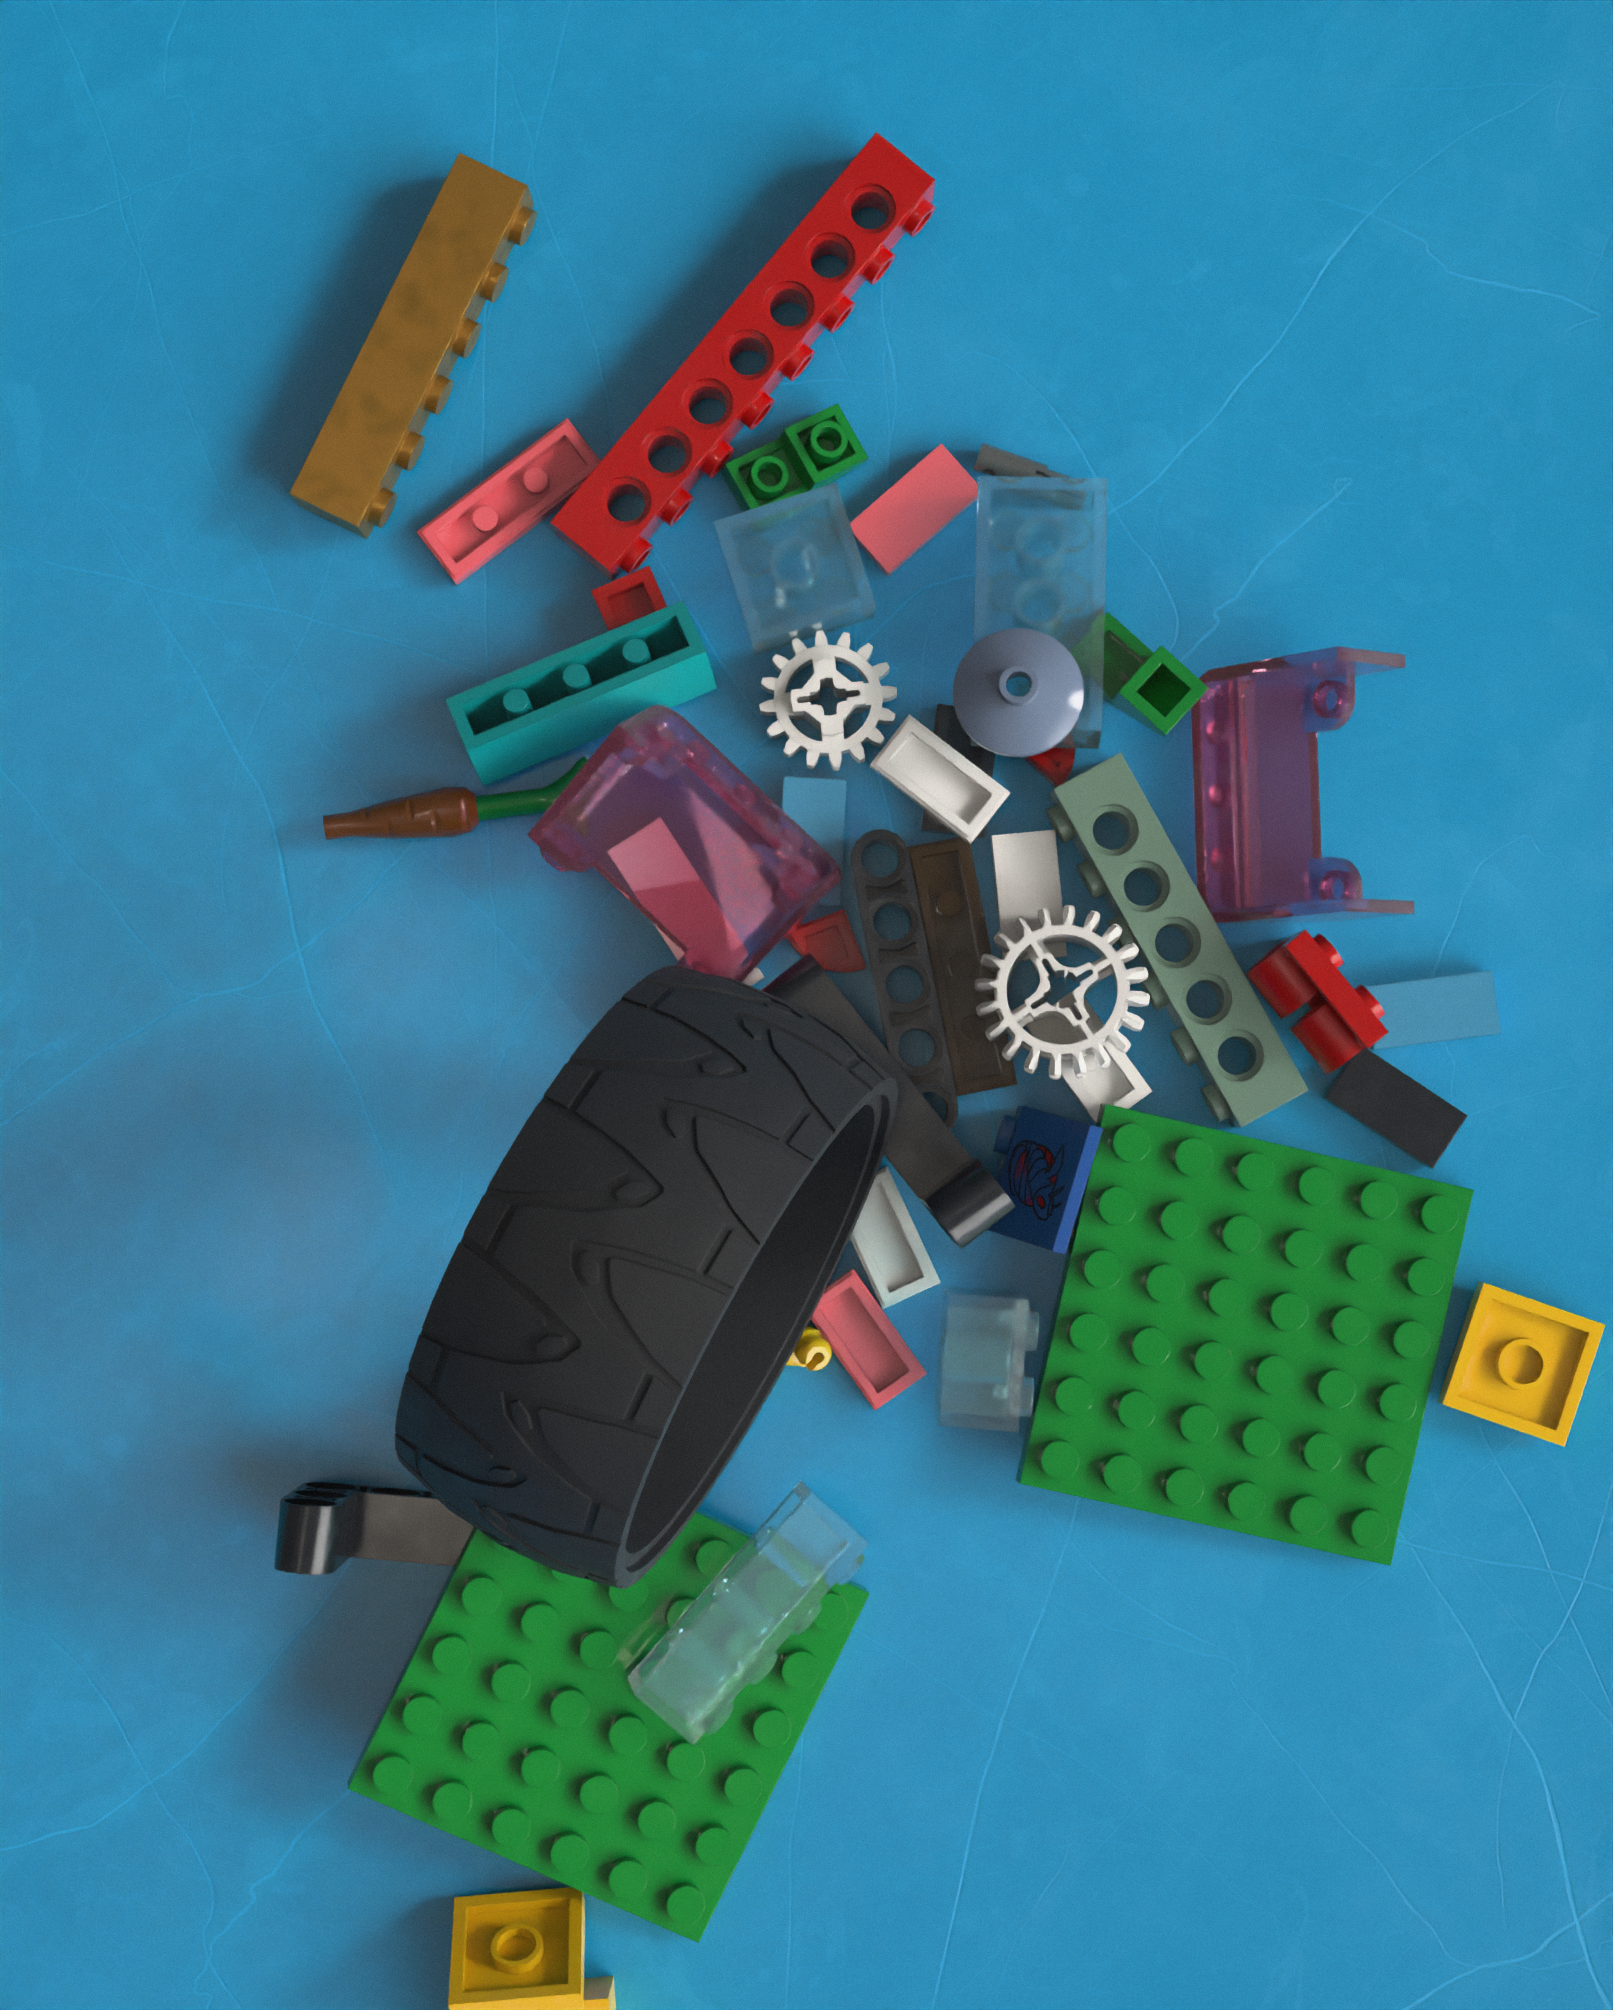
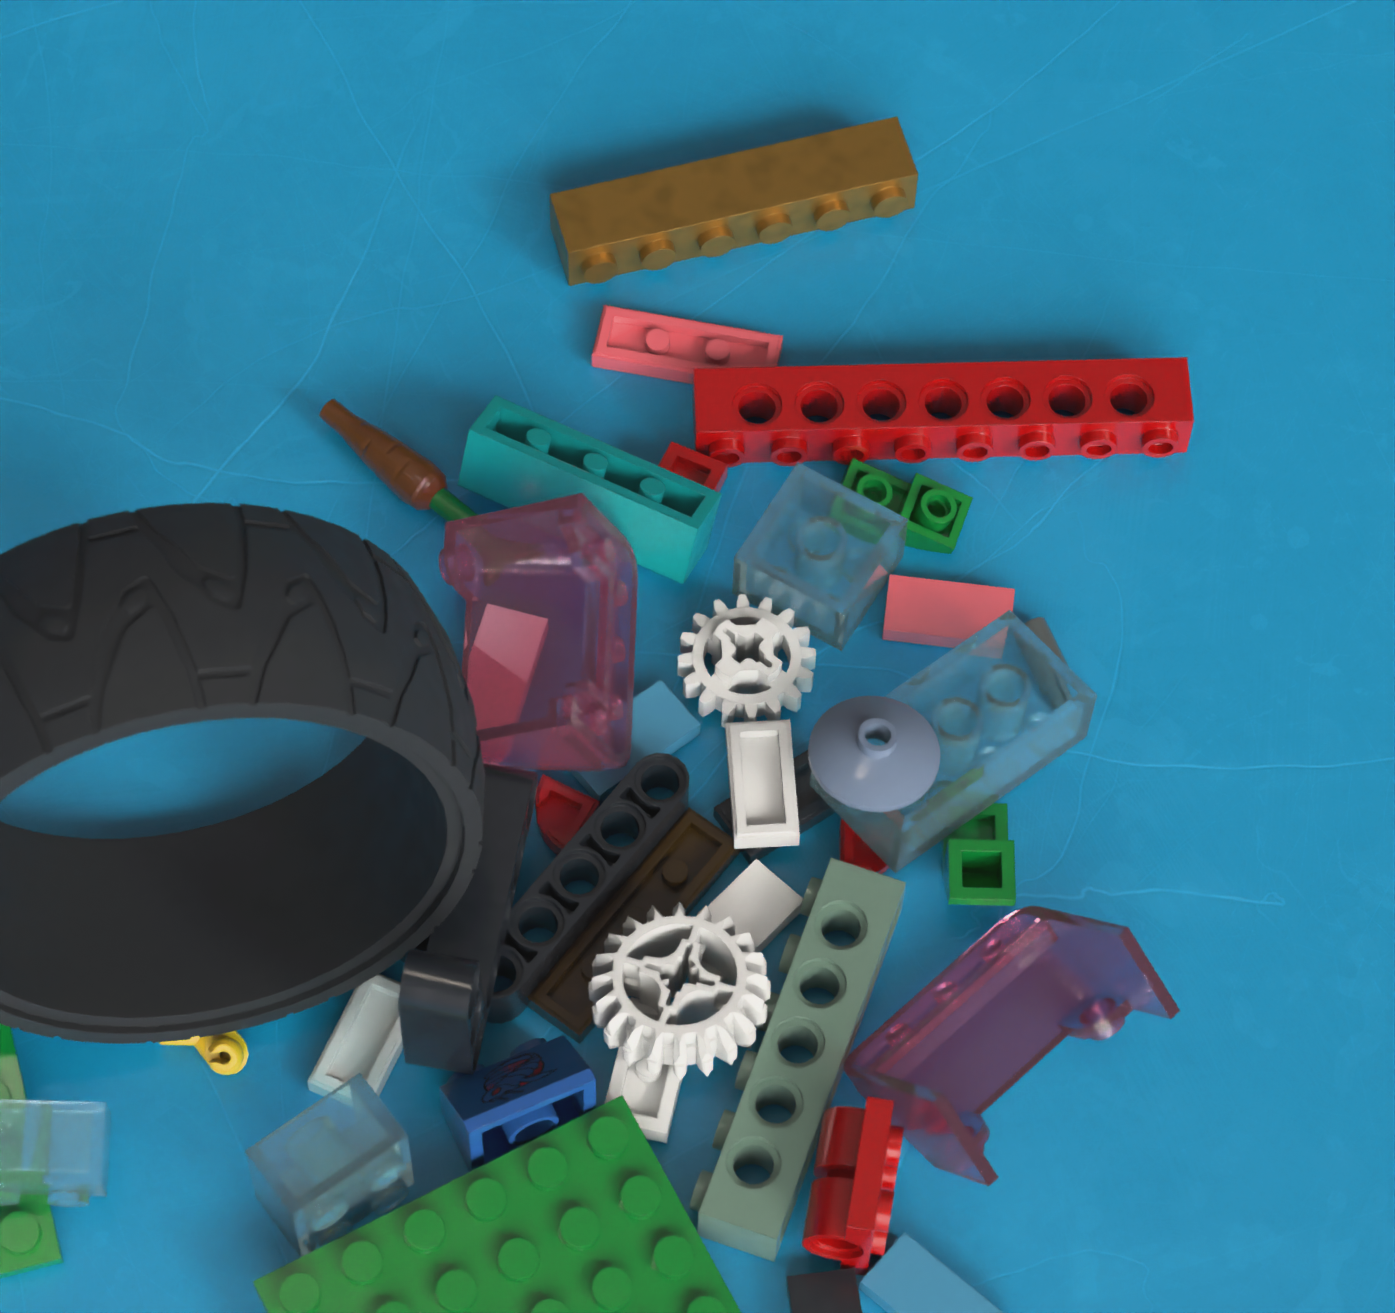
camera: 45 degrees right, 25 degrees down
(865, 1340) = (269, 1084): coral tile -> none

